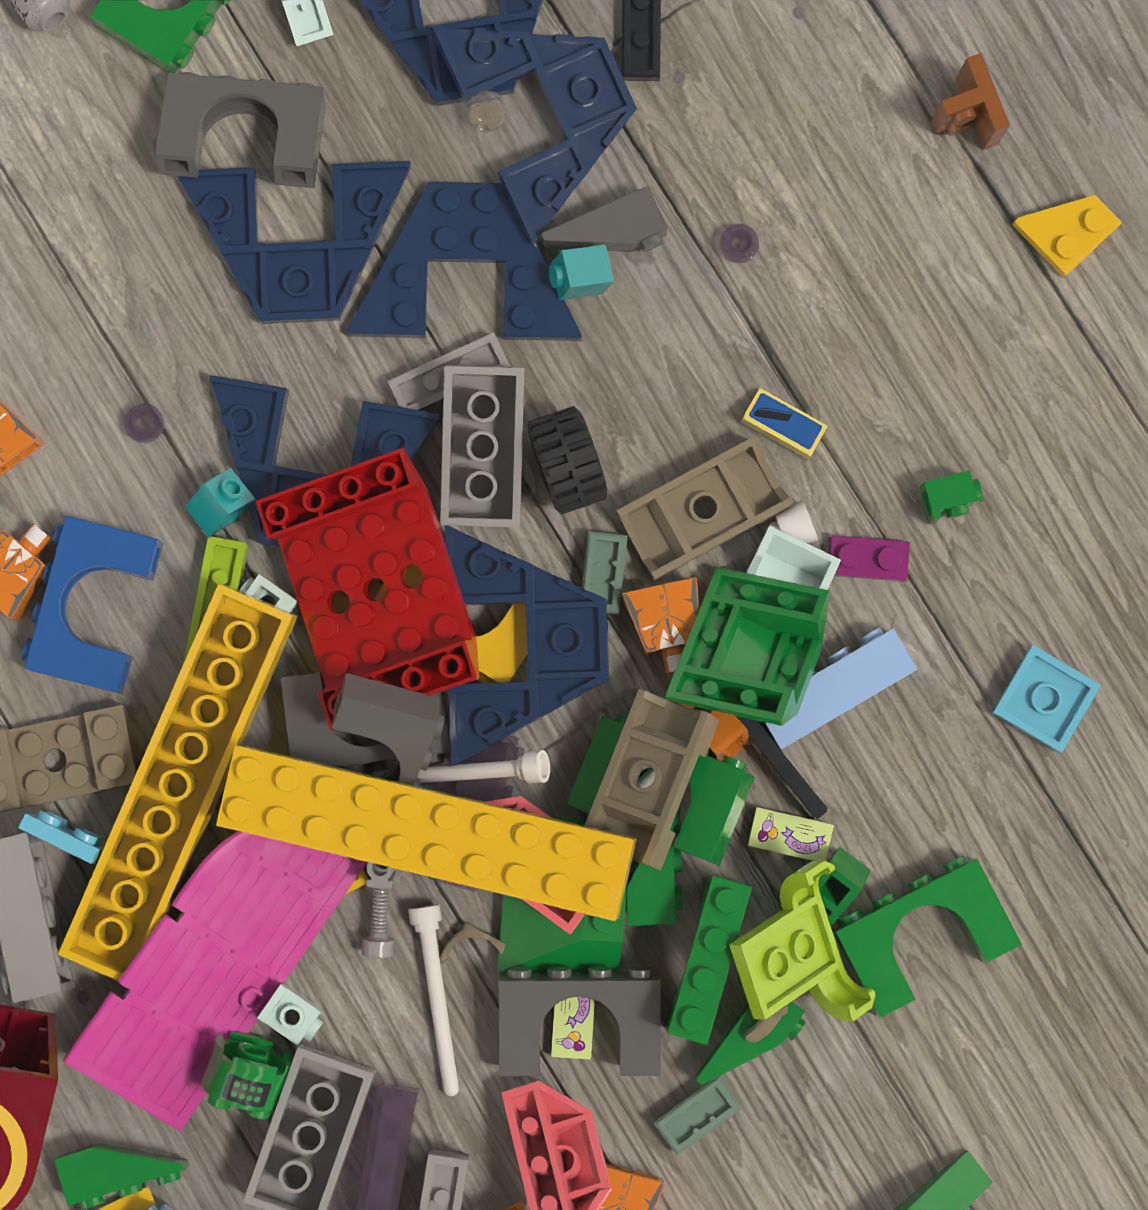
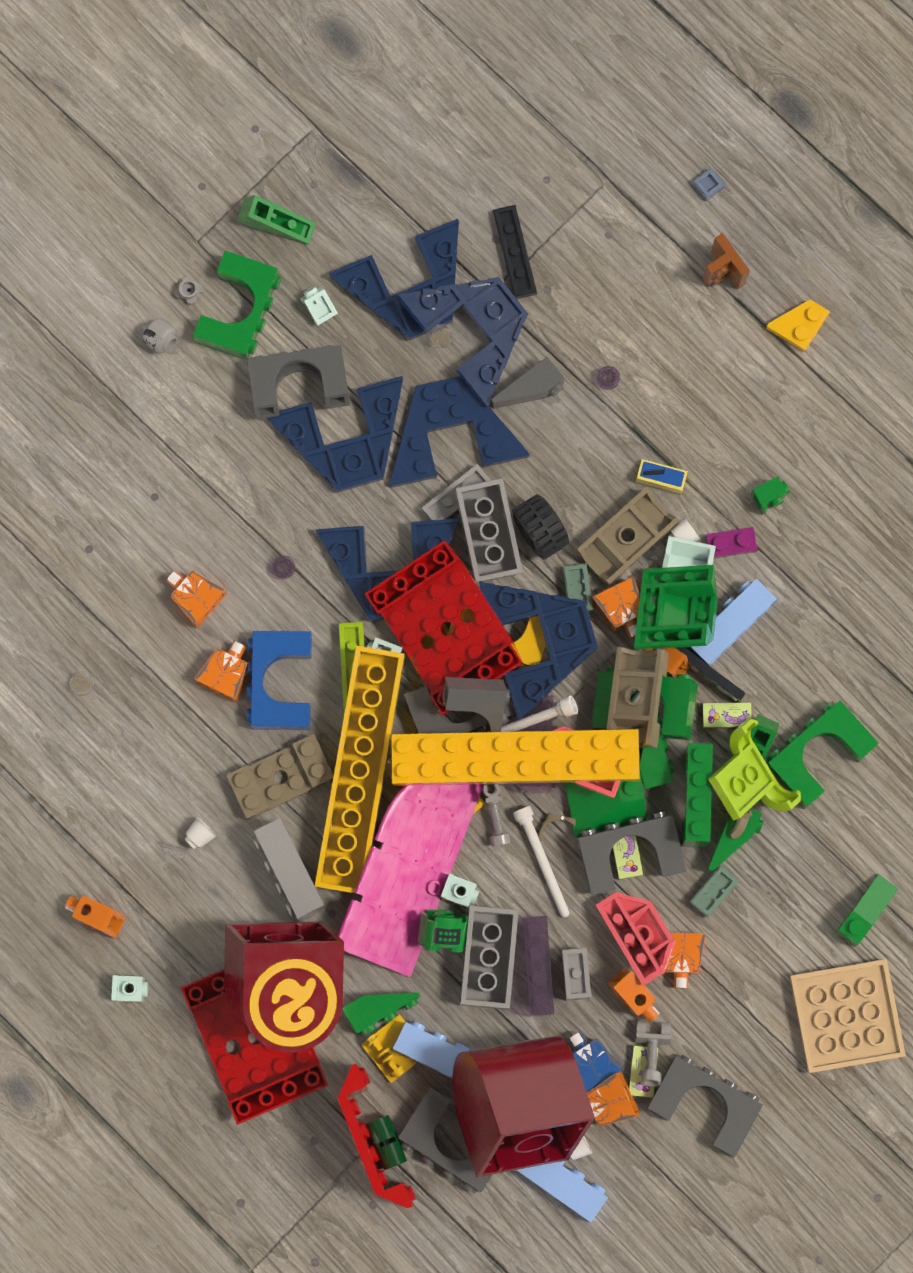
camera: 10 degrees left, 5 degrees down
(53, 830) = (311, 819): medium azure plate -> none
(219, 502) = (341, 601): teal brick -> none
(581, 272) = (520, 416): teal brick -> none
(1046, 699) = (856, 599): medium azure plate -> none

